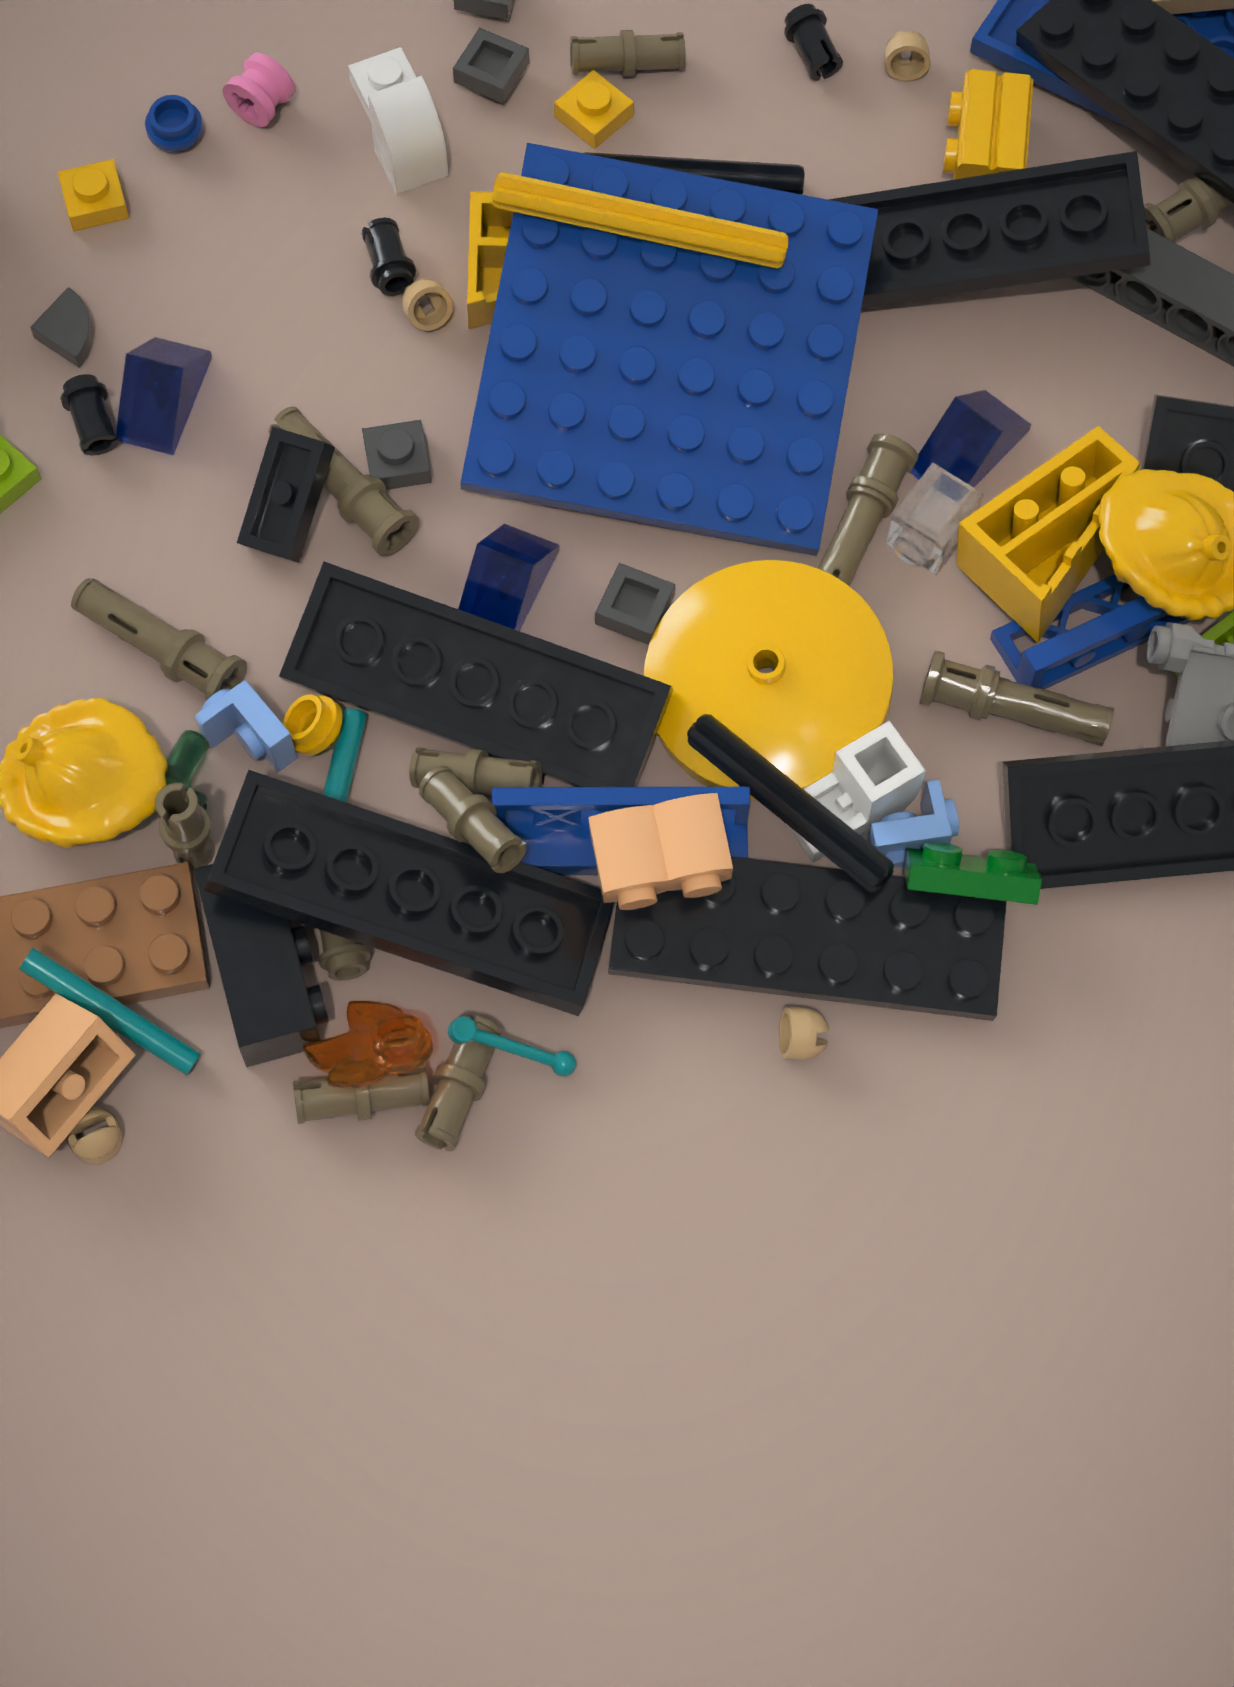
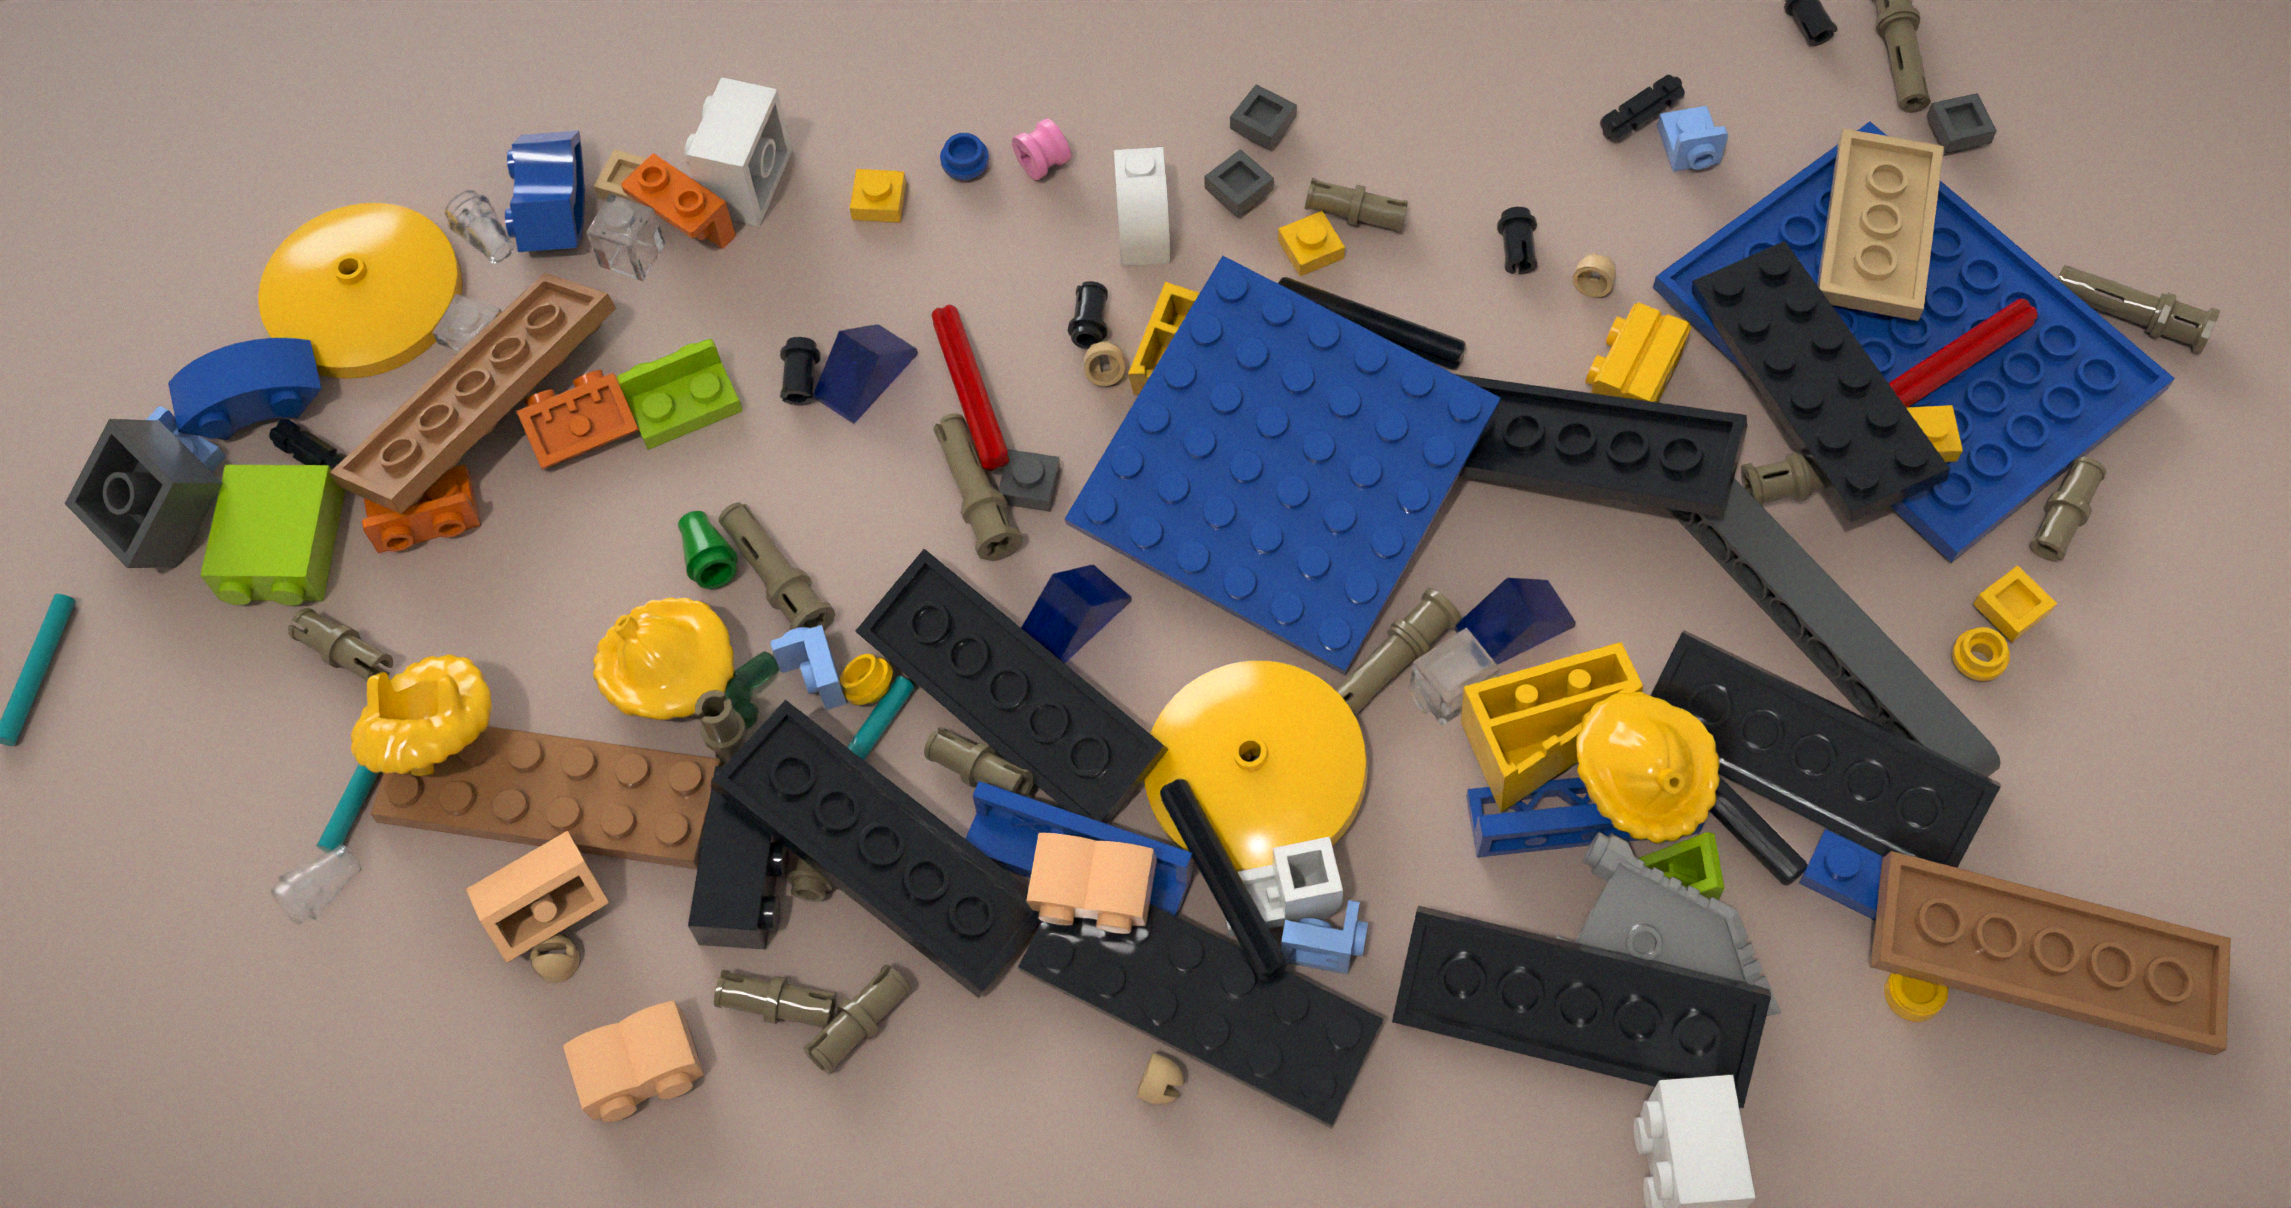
camera: 25 degrees right, 5 degrees down
(65, 328) = (811, 295): dark grey tile -> none
(75, 646) = (706, 553): none -> green cone
(110, 1011) = (605, 860): teal bar -> none
(236, 1211) = (633, 1061): none -> light nougat brick
(285, 494) = (921, 484): black plate -> none
(291, 374) = (970, 388): none -> red axle
(377, 1044) = (805, 964): clear orange plate -> none
(464, 1030) = (874, 976): teal hinge -> none
(472, 819) = (952, 802): dark tan pin -> none
(634, 603) = (1169, 665): dark grey plate -> none
(640, 220) = (1289, 347): yellow axle -> none
(946, 871) = (1370, 1003): green plate -> none
(986, 692) = (1439, 842): dark tan pin -> none

